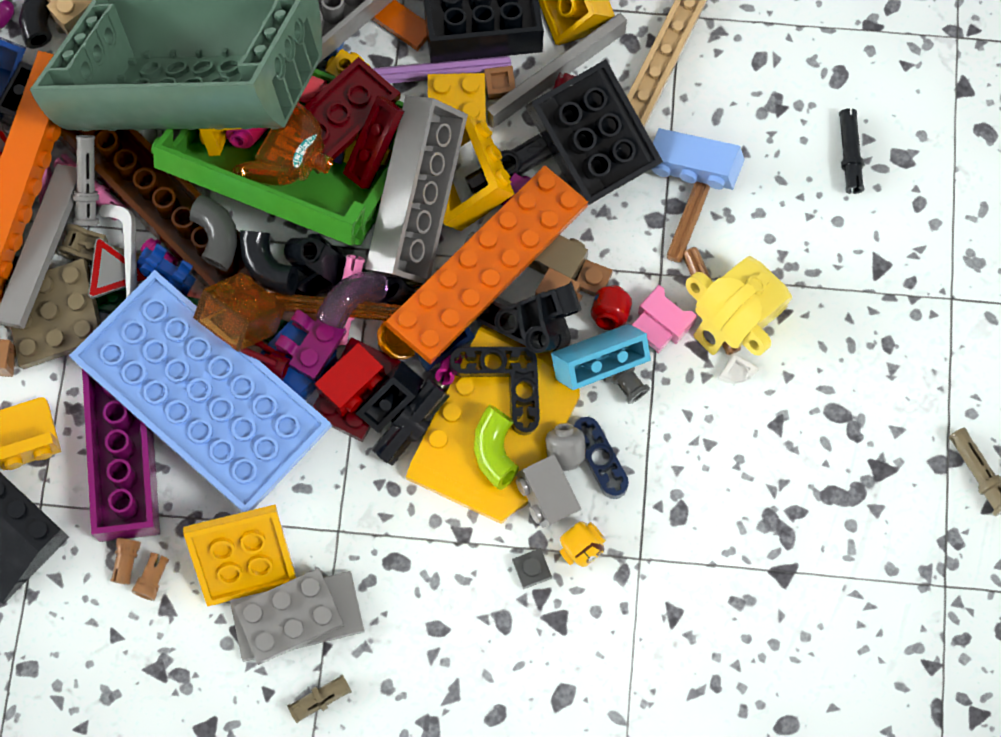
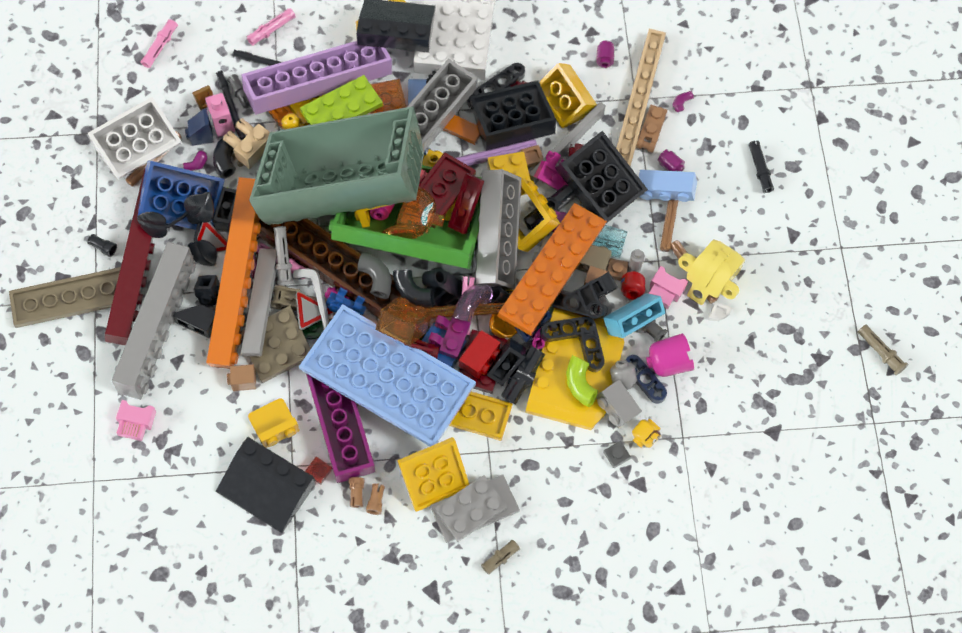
camera: 15 degrees left, 5 degrees down
(73, 518) = (319, 470): none -> clear red plate
(339, 473) = (483, 416): none -> yellow tile
(513, 113) = (547, 173): none -> dark pink plate
(594, 231) = (612, 239): none -> clear light blue hinge
(622, 271) = (636, 260): none -> light grey cylinder
(643, 430) = (670, 356): none -> dark pink cylinder
(693, 65) = (651, 128): none -> medium nougat plate
(712, 122) = (671, 161): none -> magenta brick
(746, 28) = (681, 99): none -> magenta arm

